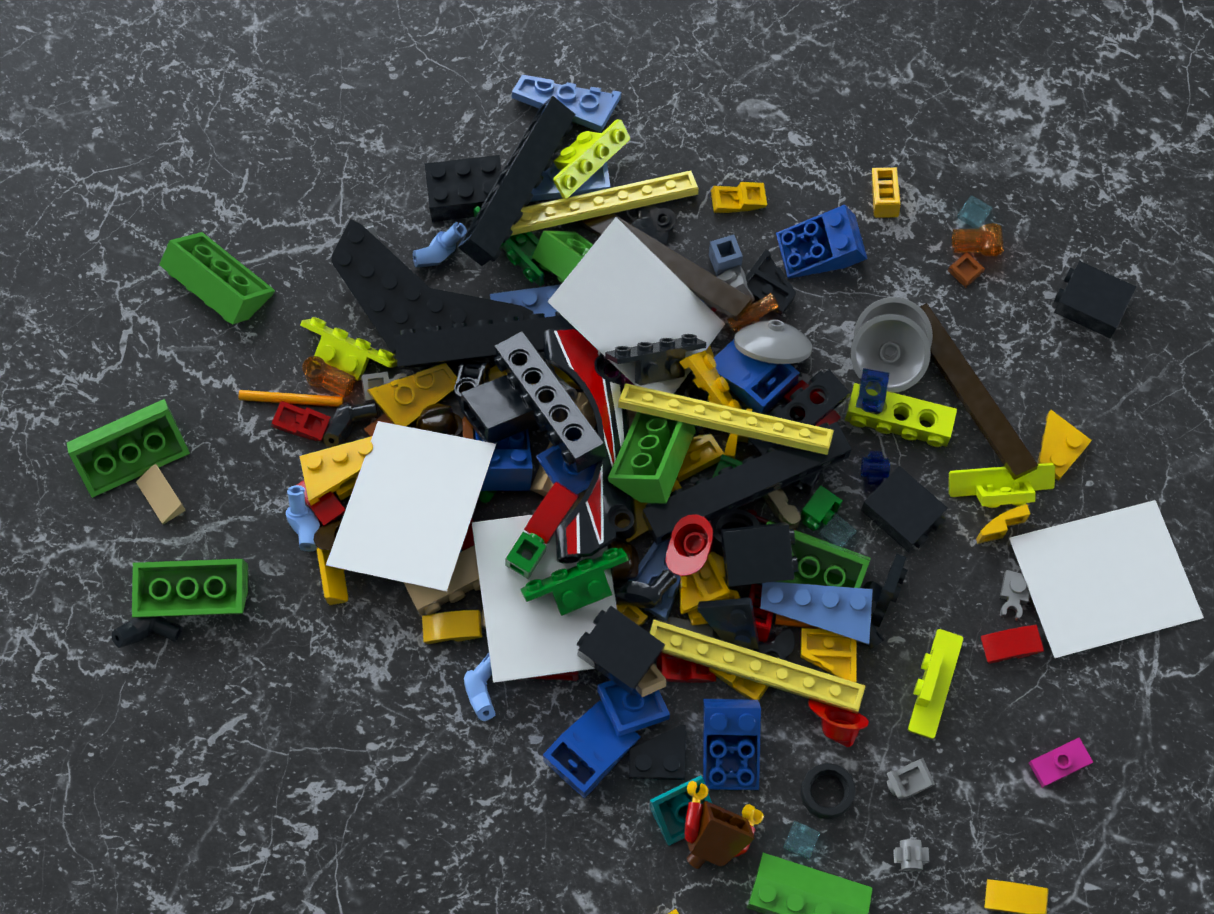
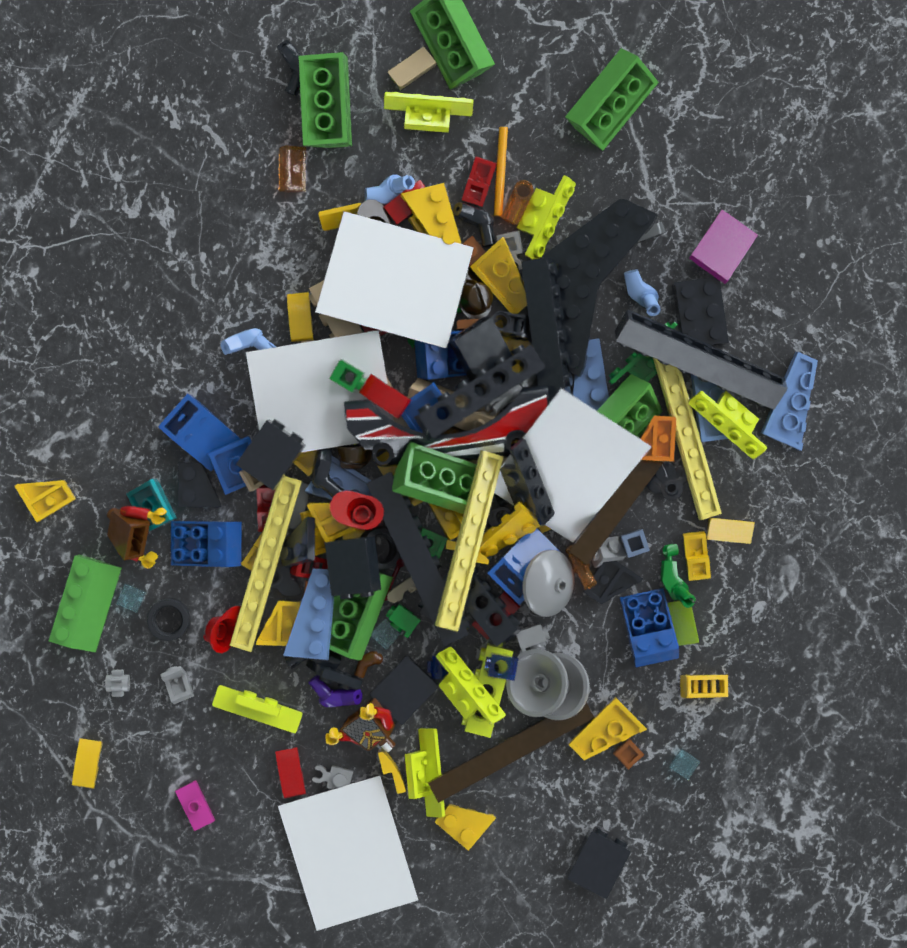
camera: 90 degrees right, 20 degrees up
(213, 475) = (426, 111): none -> neon yellow bracket
(270, 636) = (292, 169): none -> clear orange slope
(392, 162) = (723, 246): none -> tile
(578, 585) = (325, 418): green bracket -> none
(596, 220) = (661, 438): none -> orange wing
(709, 163) = (730, 530): none -> yellow slope
(766, 222) = (671, 581): none -> green arm
(811, 206) = (683, 623): none -> lime slope
(838, 363) = (532, 636): none -> light grey brick
(868, 548) = (369, 659): none -> reddish brown arm
(903, 433) = (466, 690): none -> neon yellow bracket
(916, 589) = (335, 697): none -> dark purple arm
(937, 287) = (606, 729): none -> yellow wing
(952, 549) = (366, 727): none -> torso
(986, 239) = (655, 770): clear orange piece -> none

